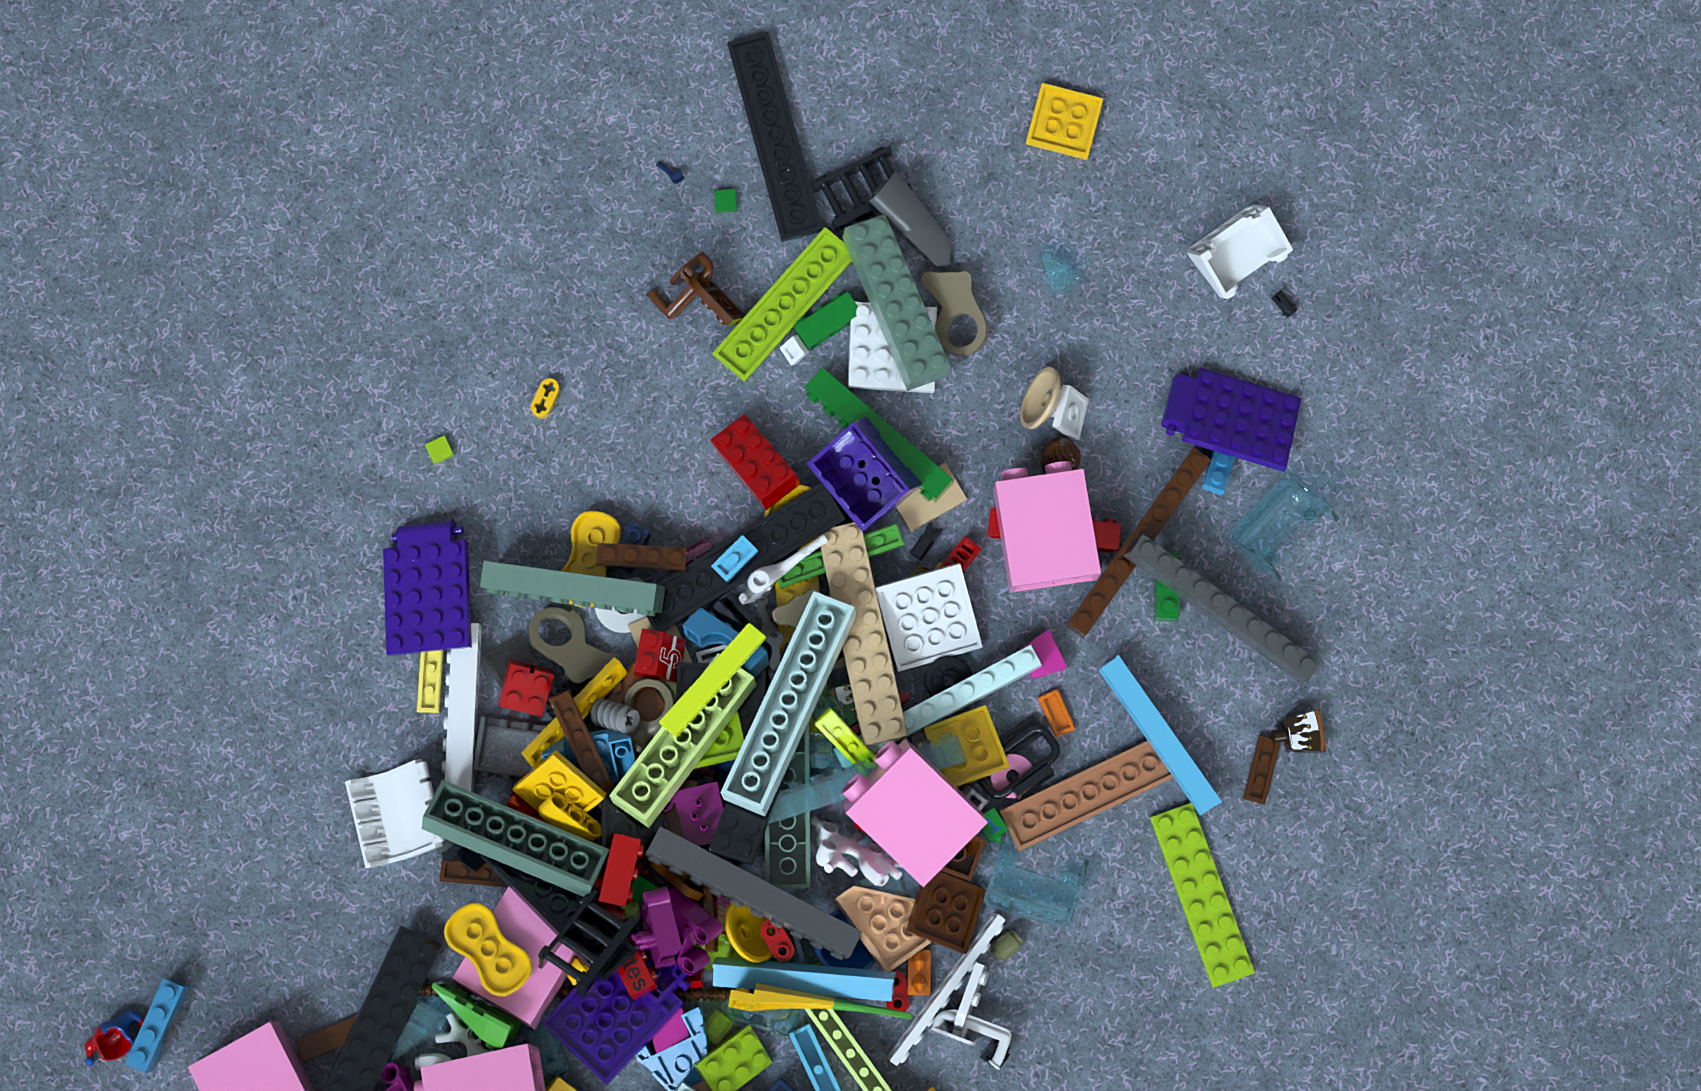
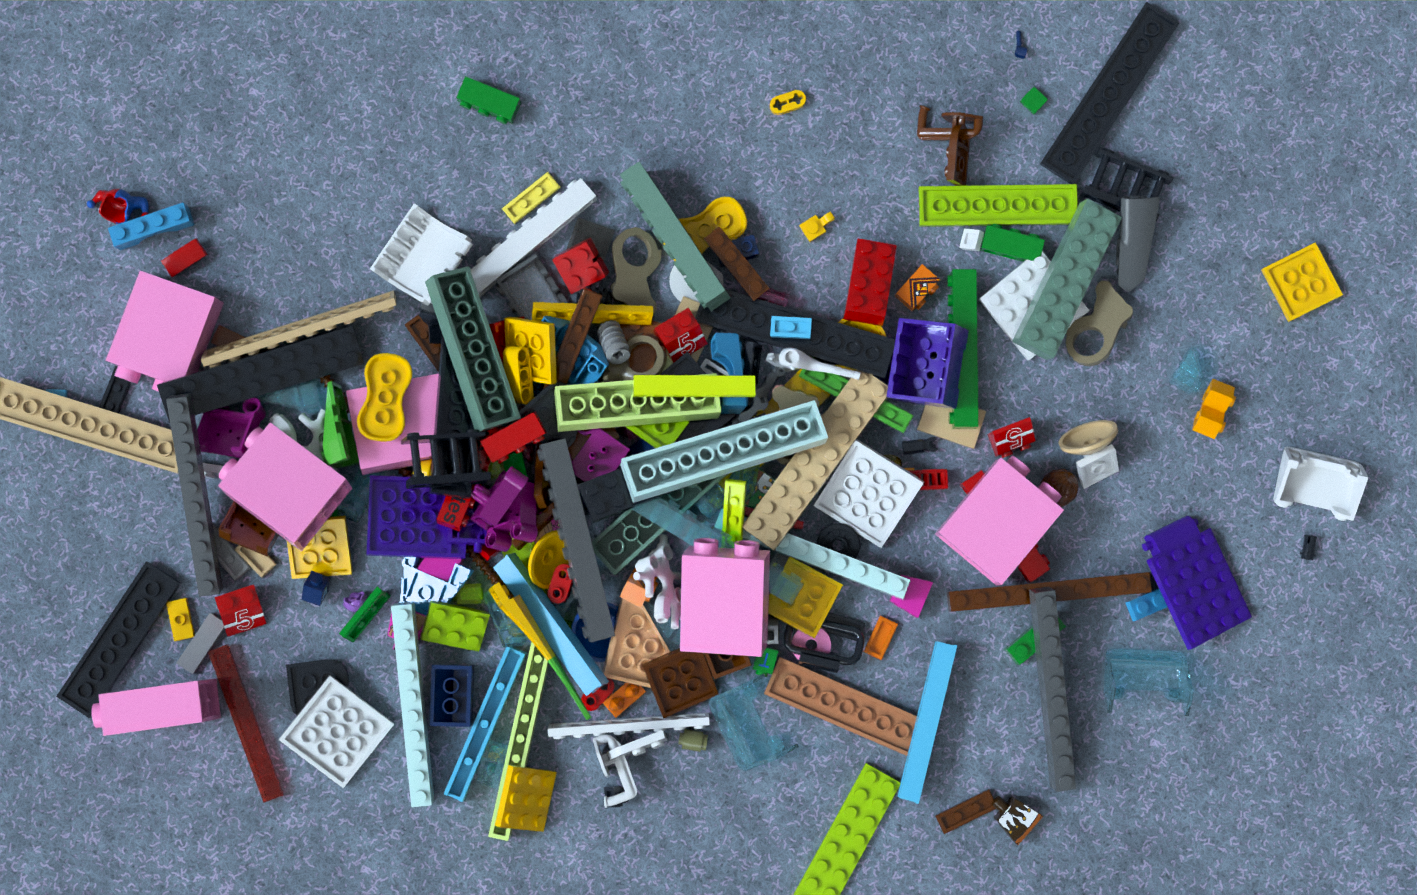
camera: 50 degrees right, 5 degrees up
(210, 1020) = (184, 257): none -> red slope
(316, 642) = (488, 100): none -> green brick
(358, 981) = (291, 331): none -> tan plate
(427, 589) = (588, 141): dark purple plate -> none
(439, 450) = (689, 64): lime tile -> none
(668, 467) = (814, 227): none -> yellow plate
(794, 428) = (917, 288): none -> brick
(839, 881) = (635, 590): none -> brick
(986, 460) = (1012, 437): none -> red slope
(1100, 271) = (1216, 400): none -> light orange brick

